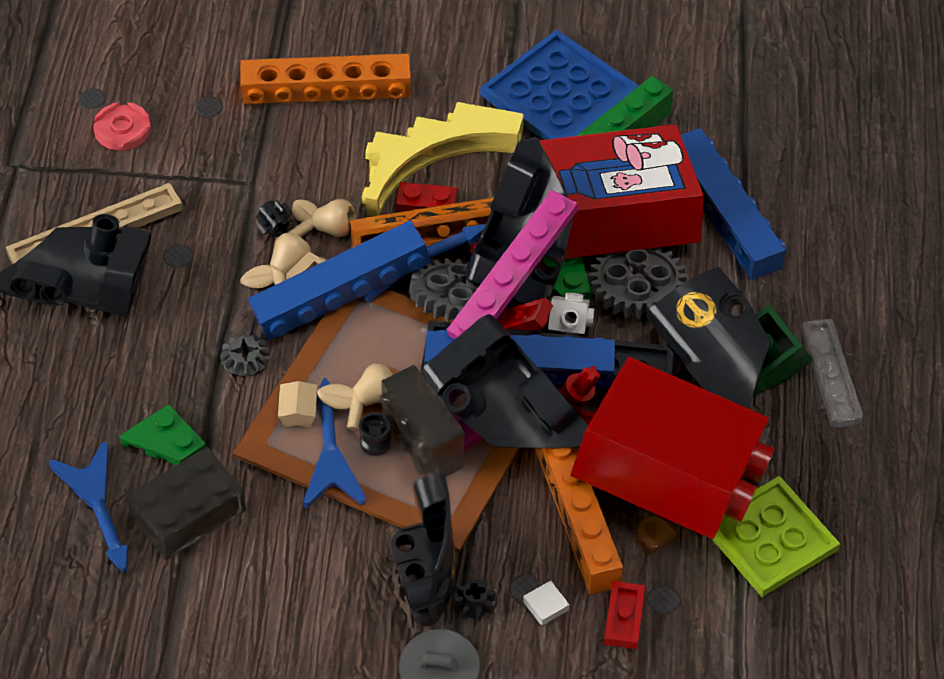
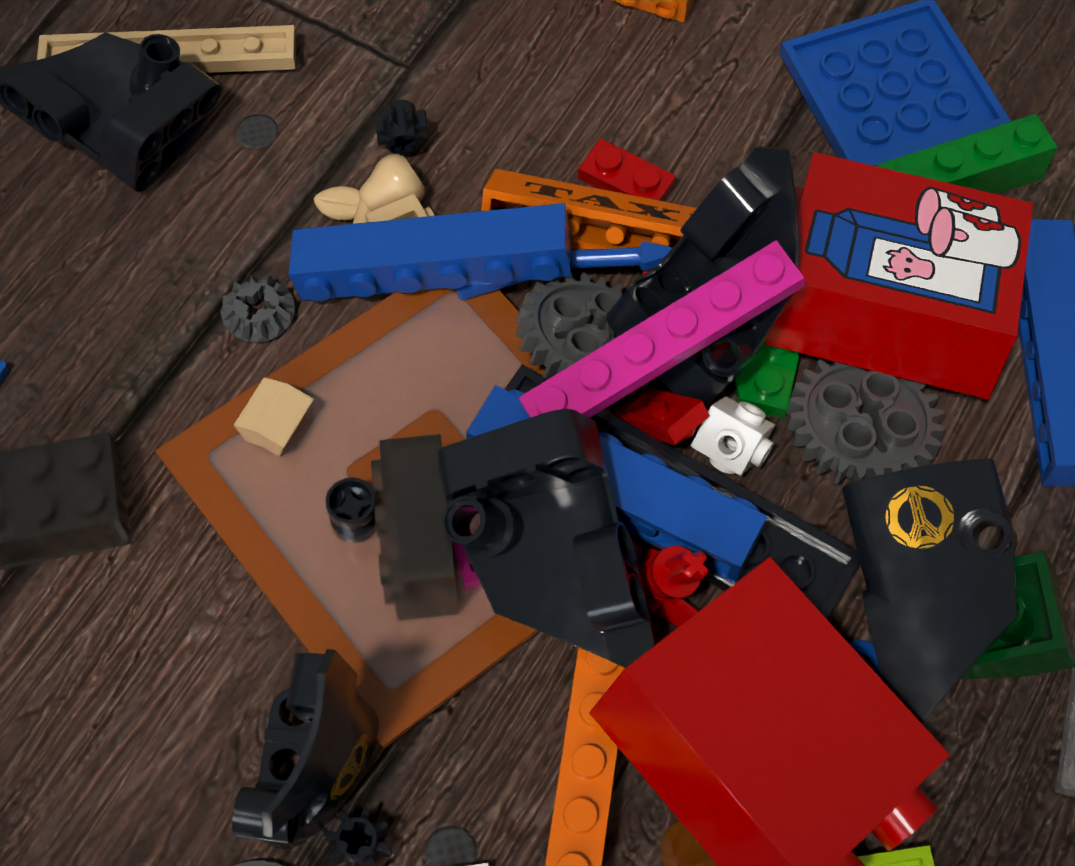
camera: 25 degrees right, 10 degrees up
(164, 437) = (85, 387): green wing -> none
(330, 218) = (471, 153): tan piece -> none
(331, 466) = (271, 532): blue piece -> none
(364, 393) = (343, 434): tan piece -> none
(466, 131) = (731, 99): light yellow arch -> none

